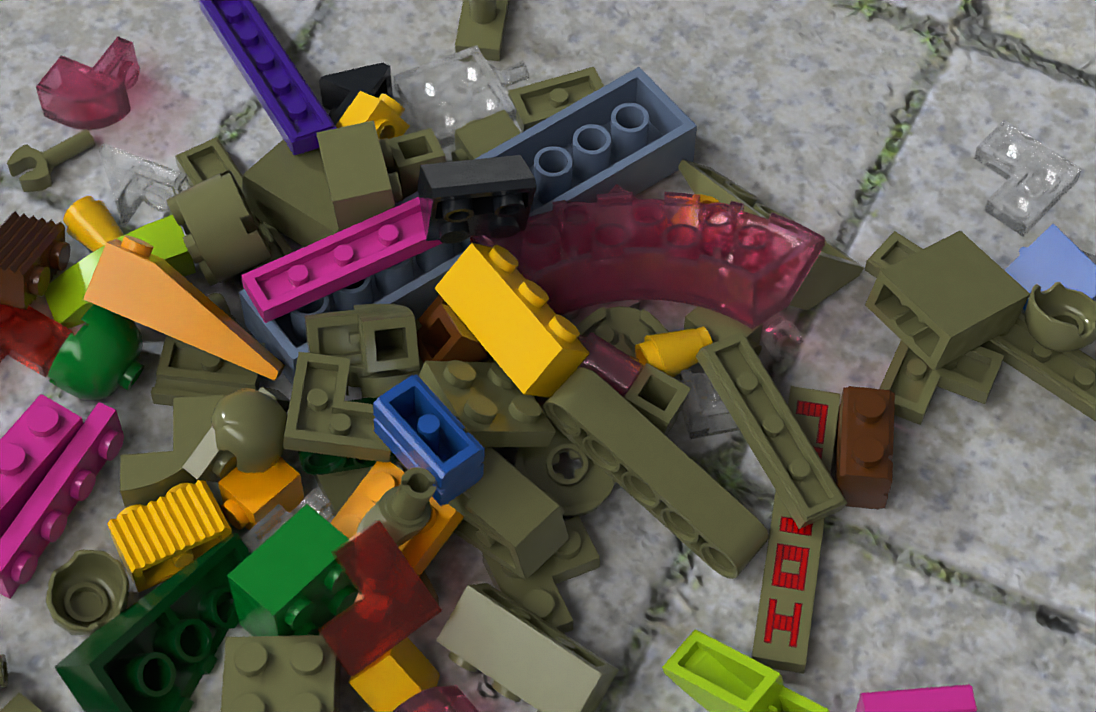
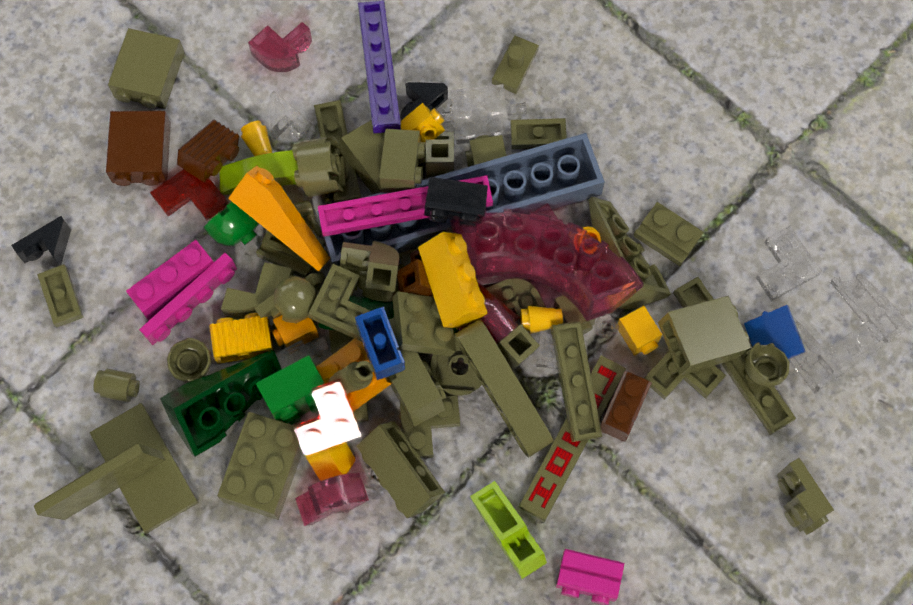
camera: 20 degrees right, 15 degrees up
(44, 162) = (244, 86): olive bar -> none
(821, 187) = (668, 234): none -> olive plate
(839, 332) = (639, 331): none -> yellow brick

